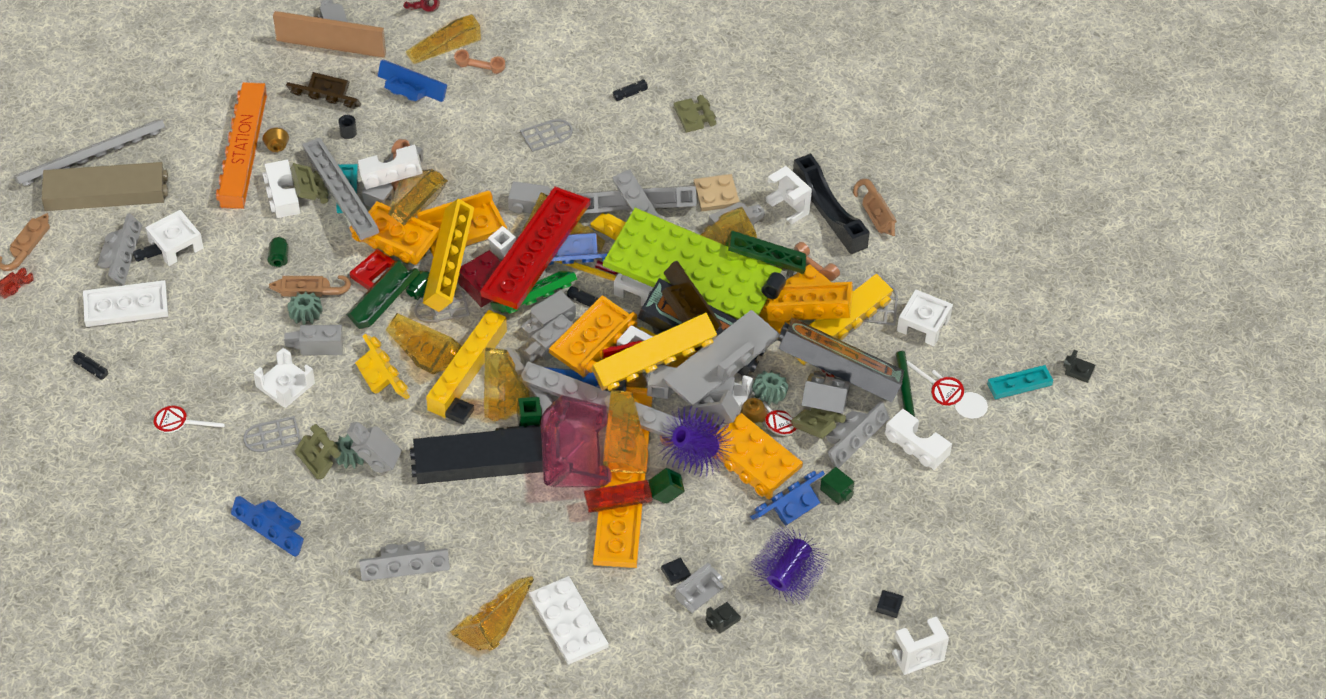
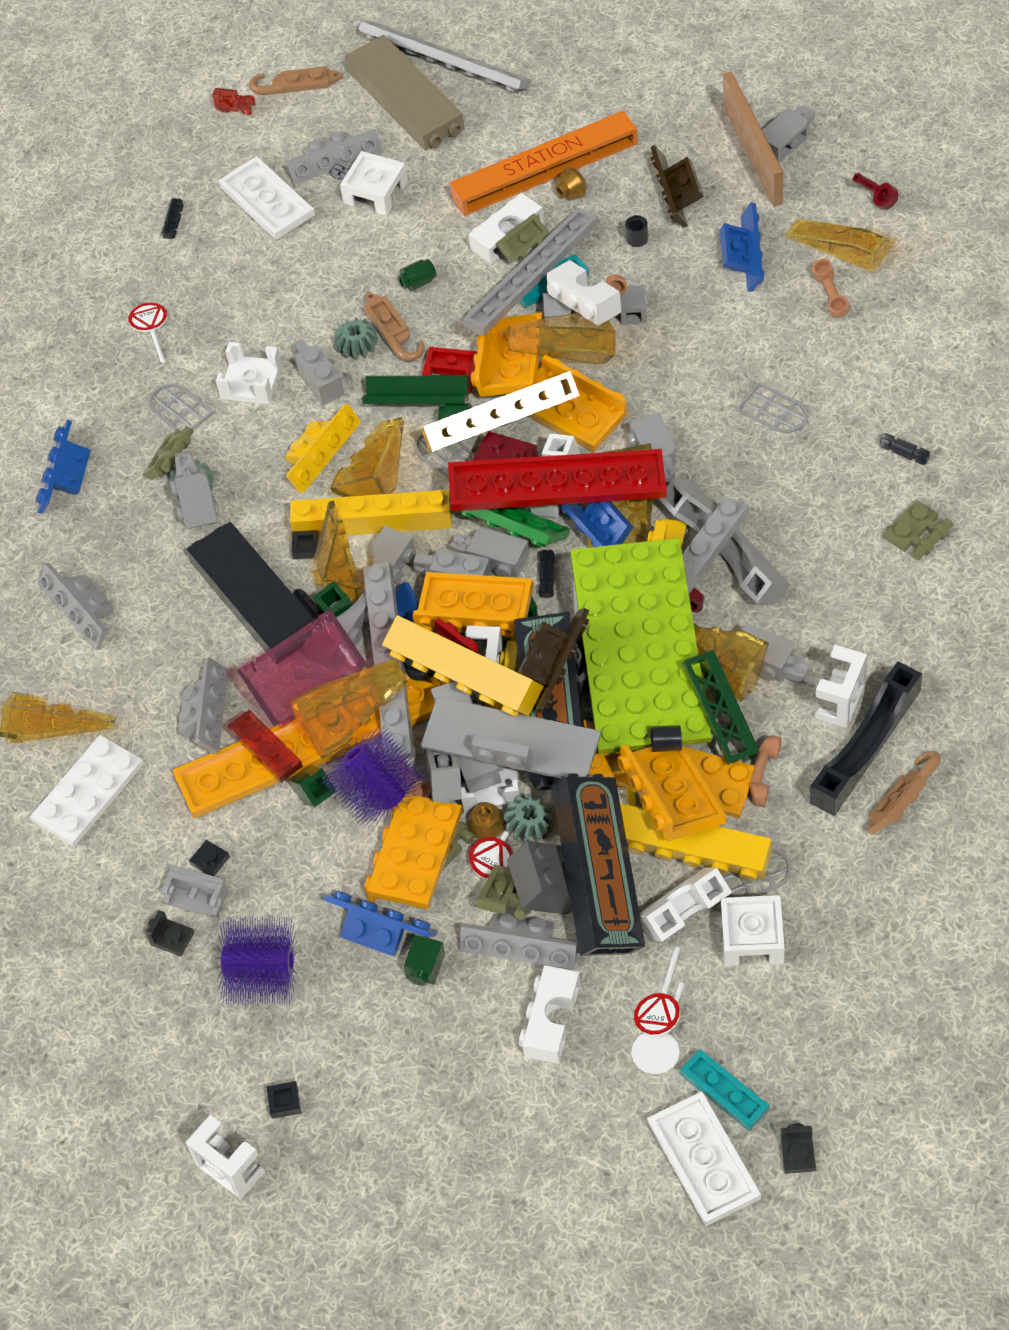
camera: 70 degrees right, 5 degrees up
(554, 524) = (204, 706): none -> light grey bracket
(716, 192) = (805, 616): tan plate -> none
(881, 328) = (693, 895): none -> white arch
(905, 386) = (632, 964): dark green piece -> none
(1059, 412) = (704, 1159): none -> white plate

